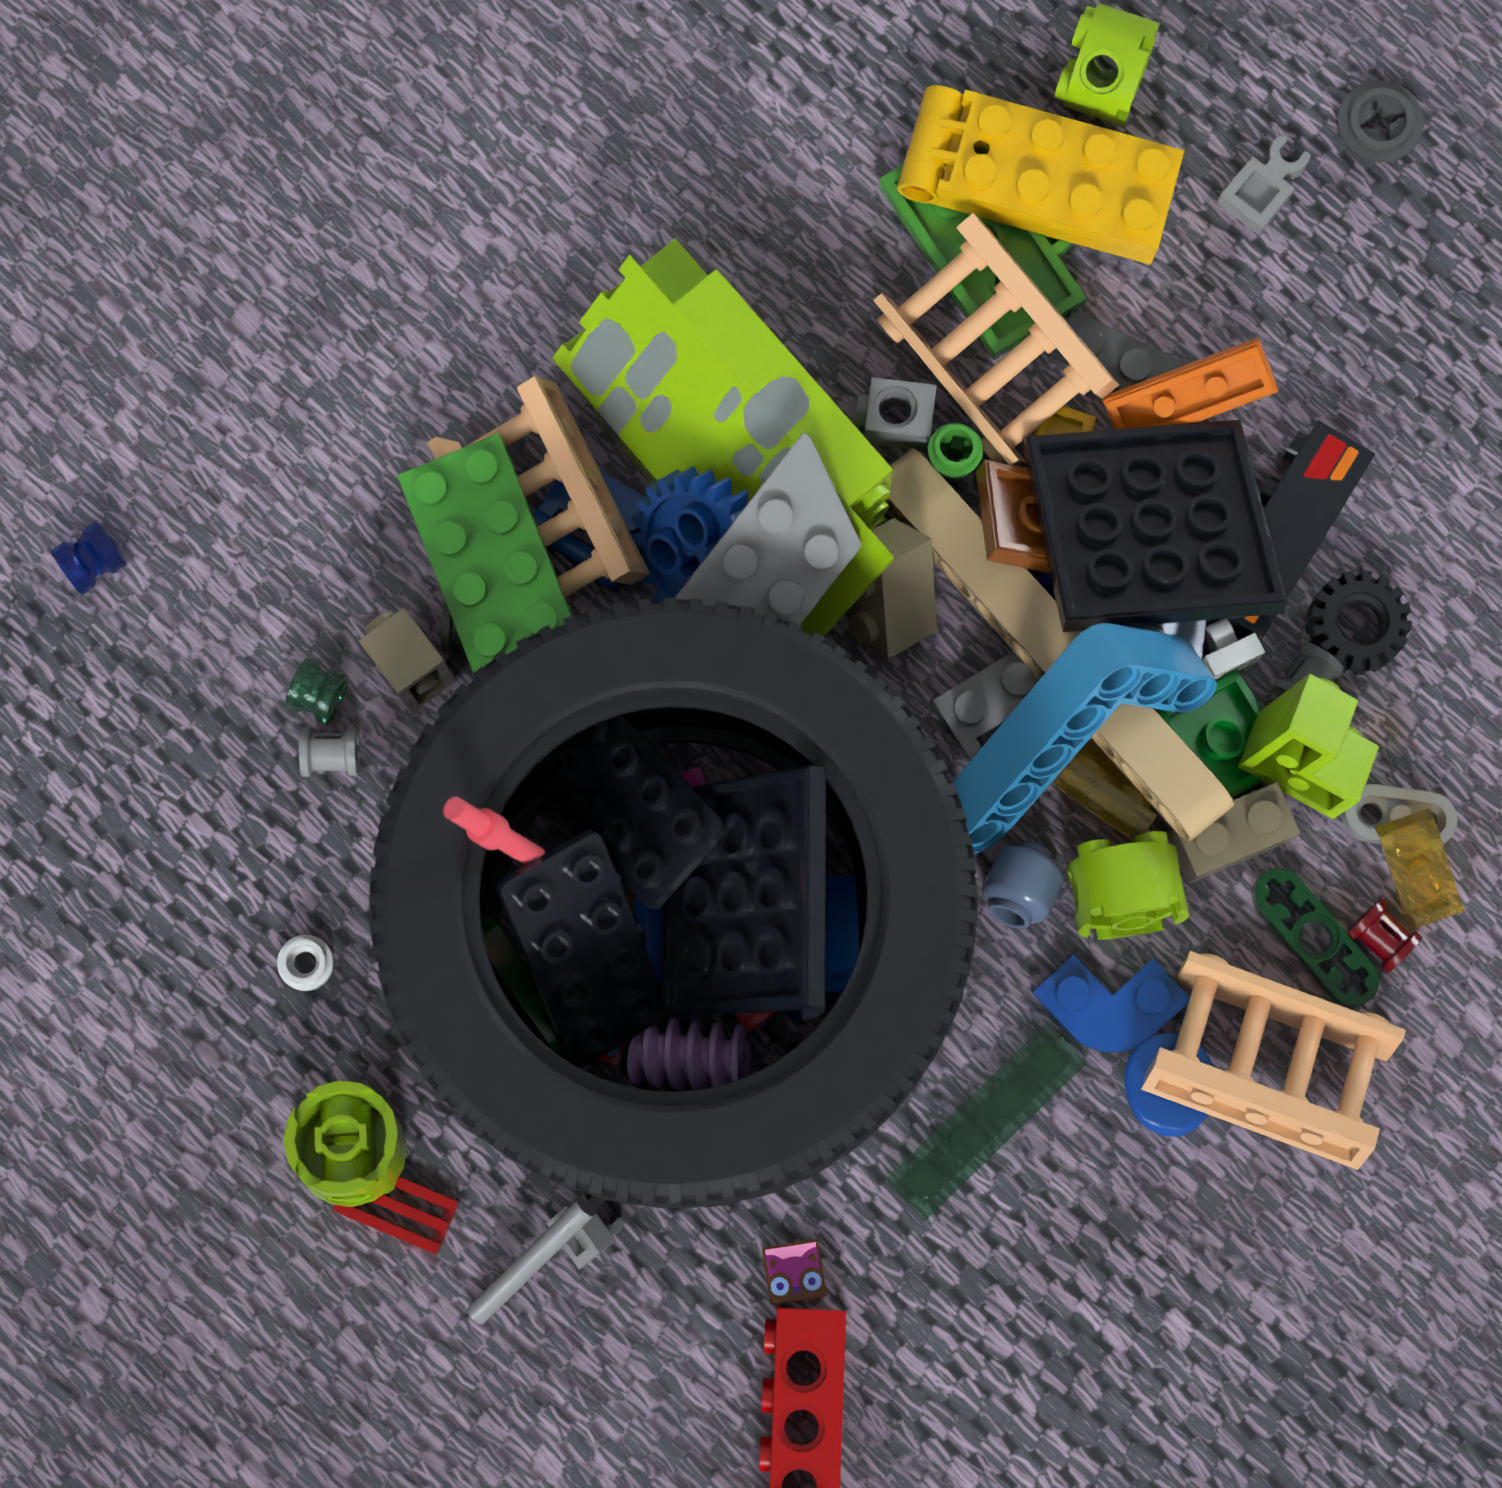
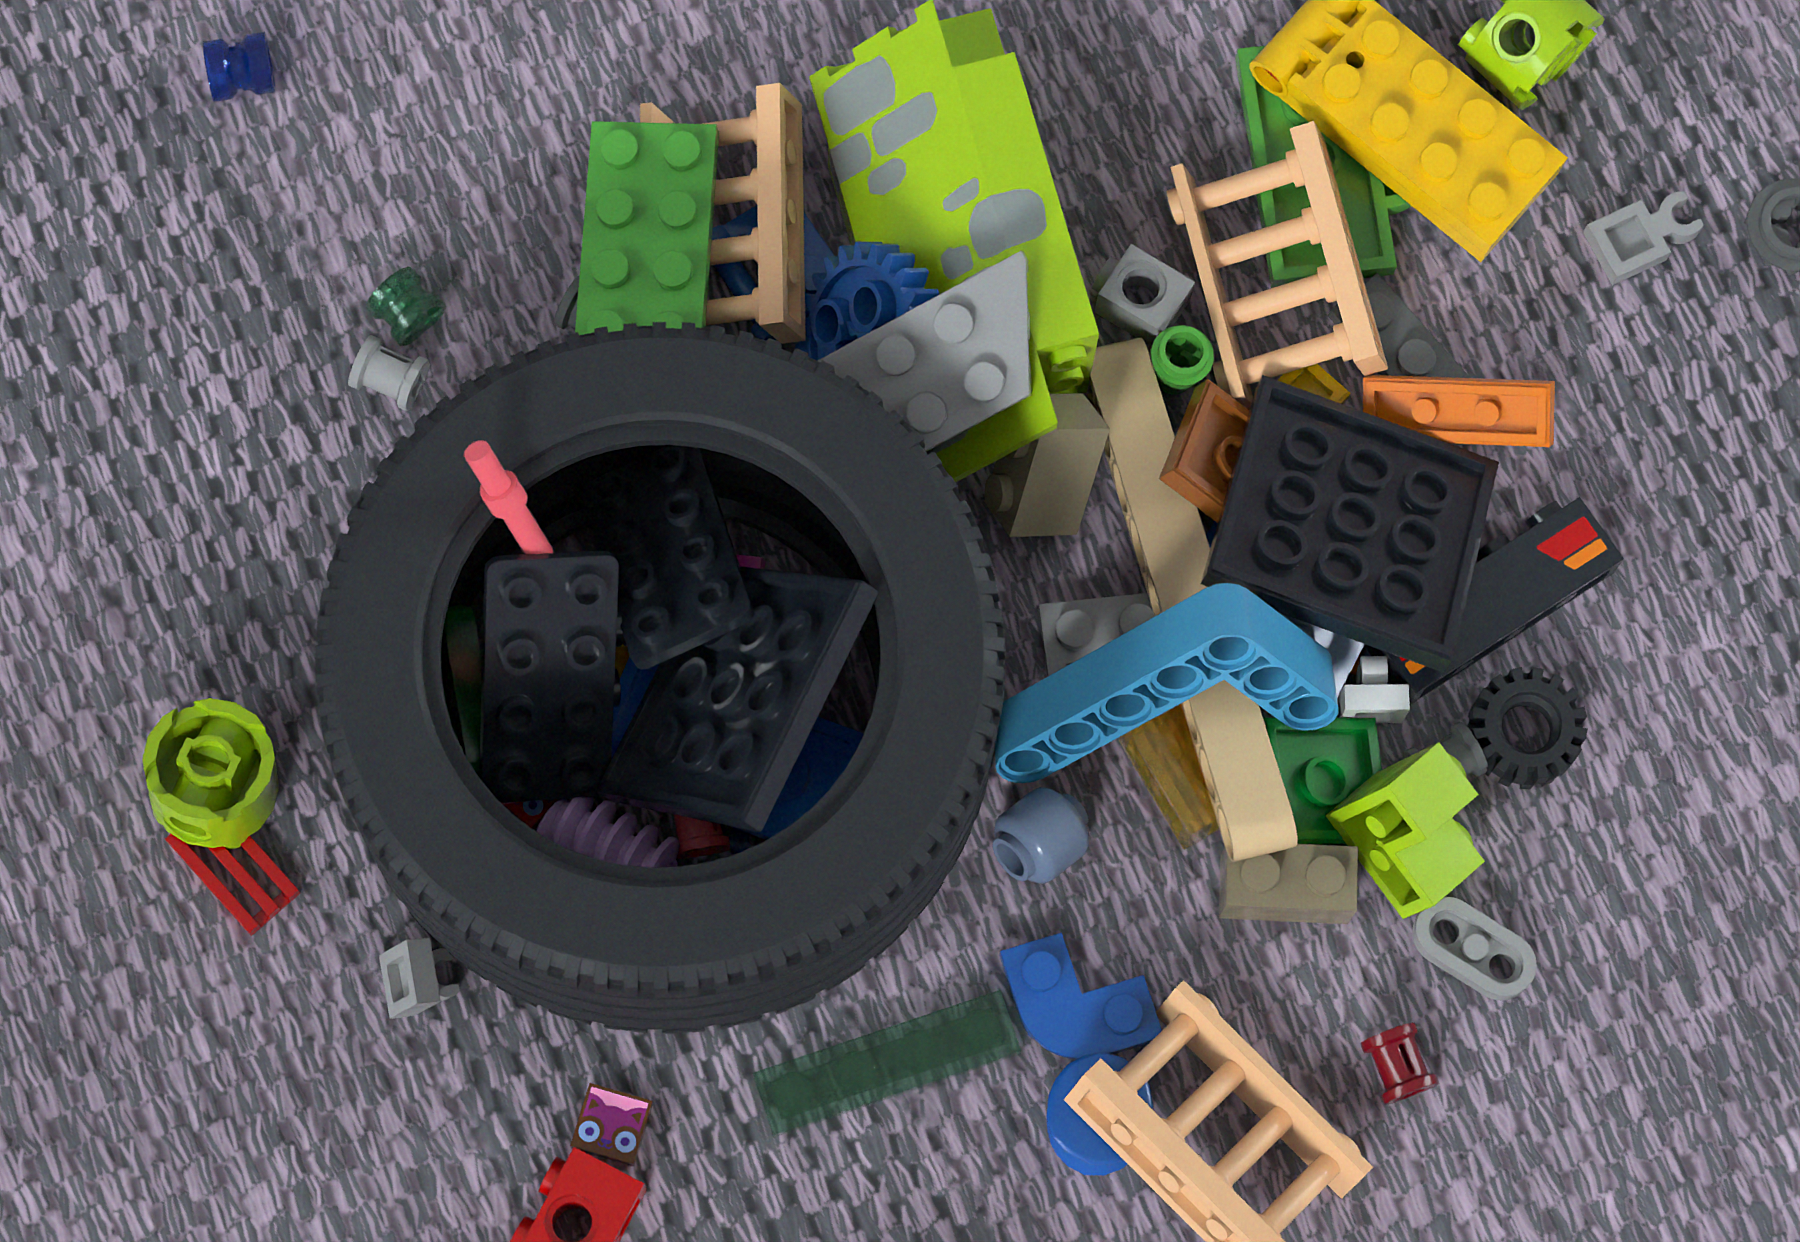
camera: 15 degrees right, 5 degrees down
(290, 953) = (260, 556): white plate -> none
(406, 658) = (509, 304): dark tan brick -> none
(531, 1260) = (343, 981): light grey bar -> none
(1127, 886) = (1148, 884): lime brick -> none
(1338, 937) = (1353, 1076): dark green beam -> none
(1419, 868) = (1467, 1008): clear yellow plate -> none

